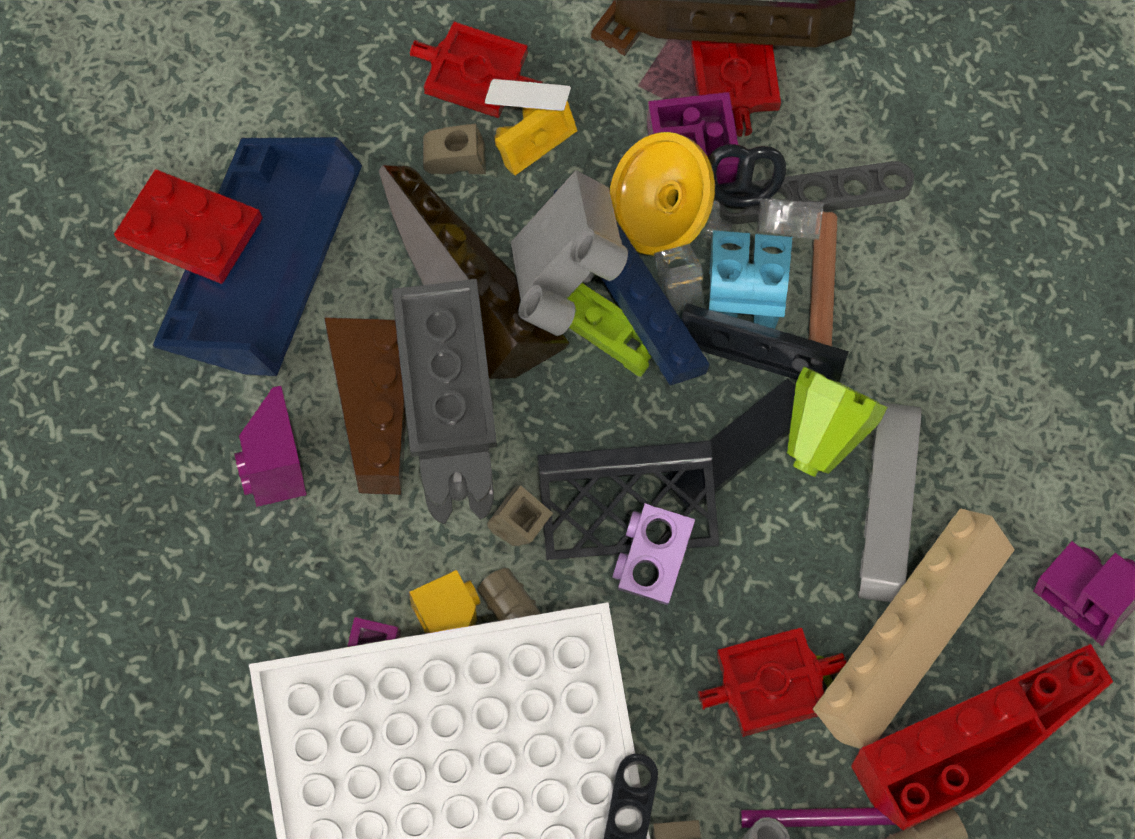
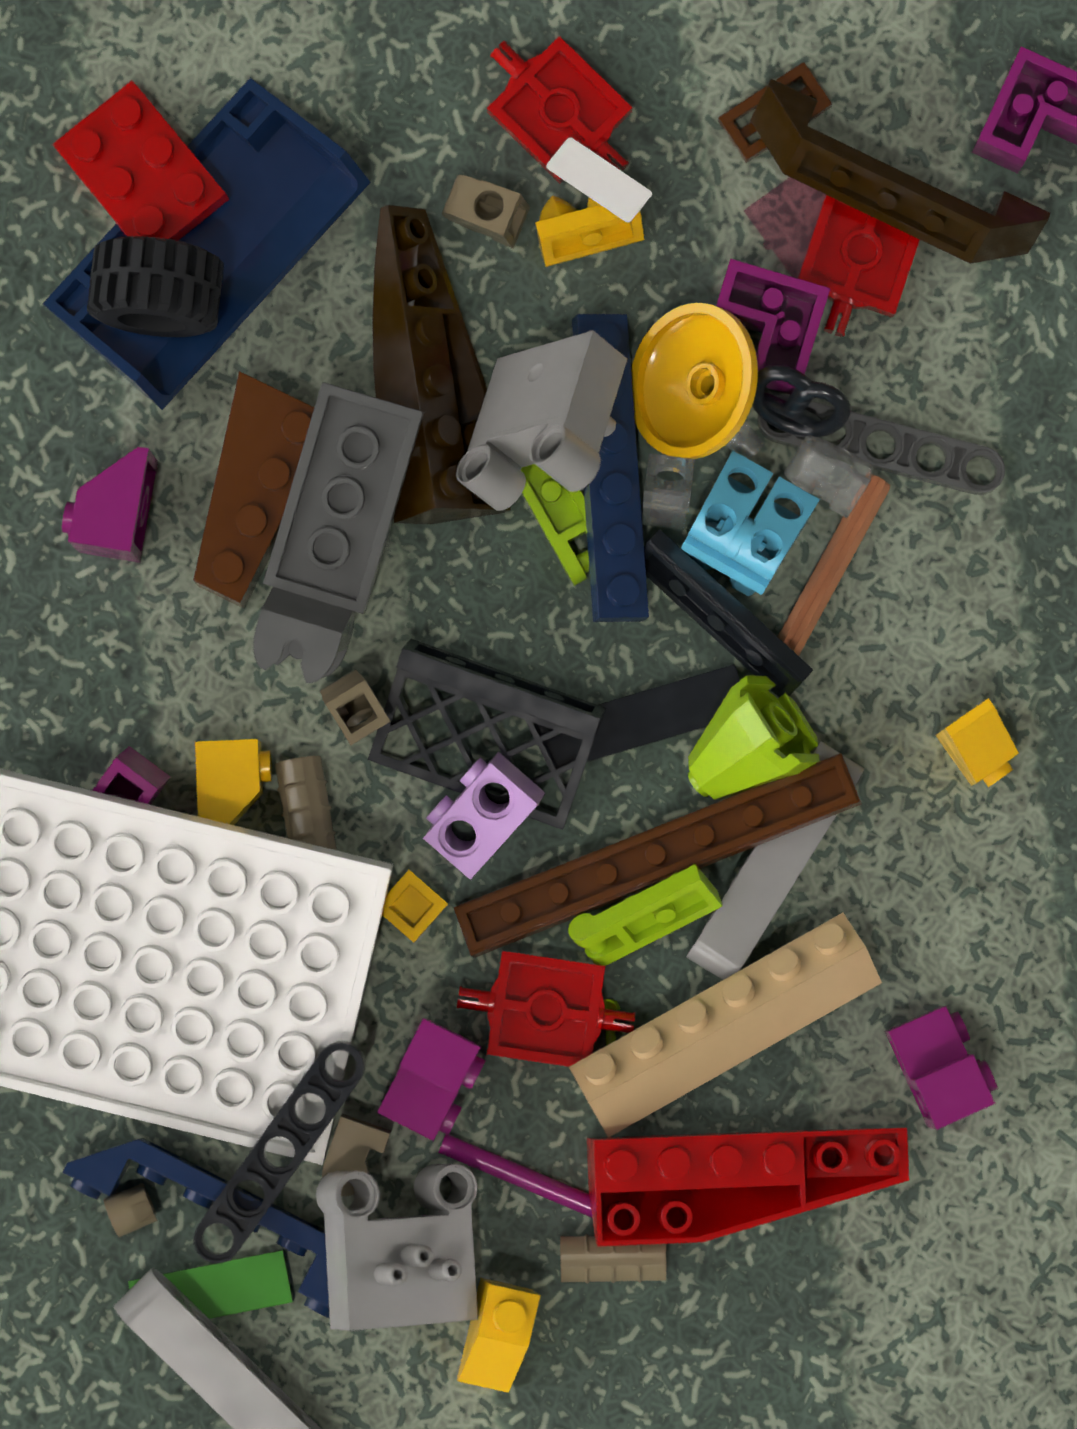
camera: 25 degrees right, 20 degrees up
(235, 281) = (155, 286): none -> black tyre
(635, 648) = (412, 906): none -> yellow plate
(709, 759) = (430, 1080): none -> magenta brick
(798, 531) = (656, 855): none -> reddish brown tile
(814, 574) = (645, 916): none -> lime plate
(994, 351) = (979, 744): none -> yellow slope

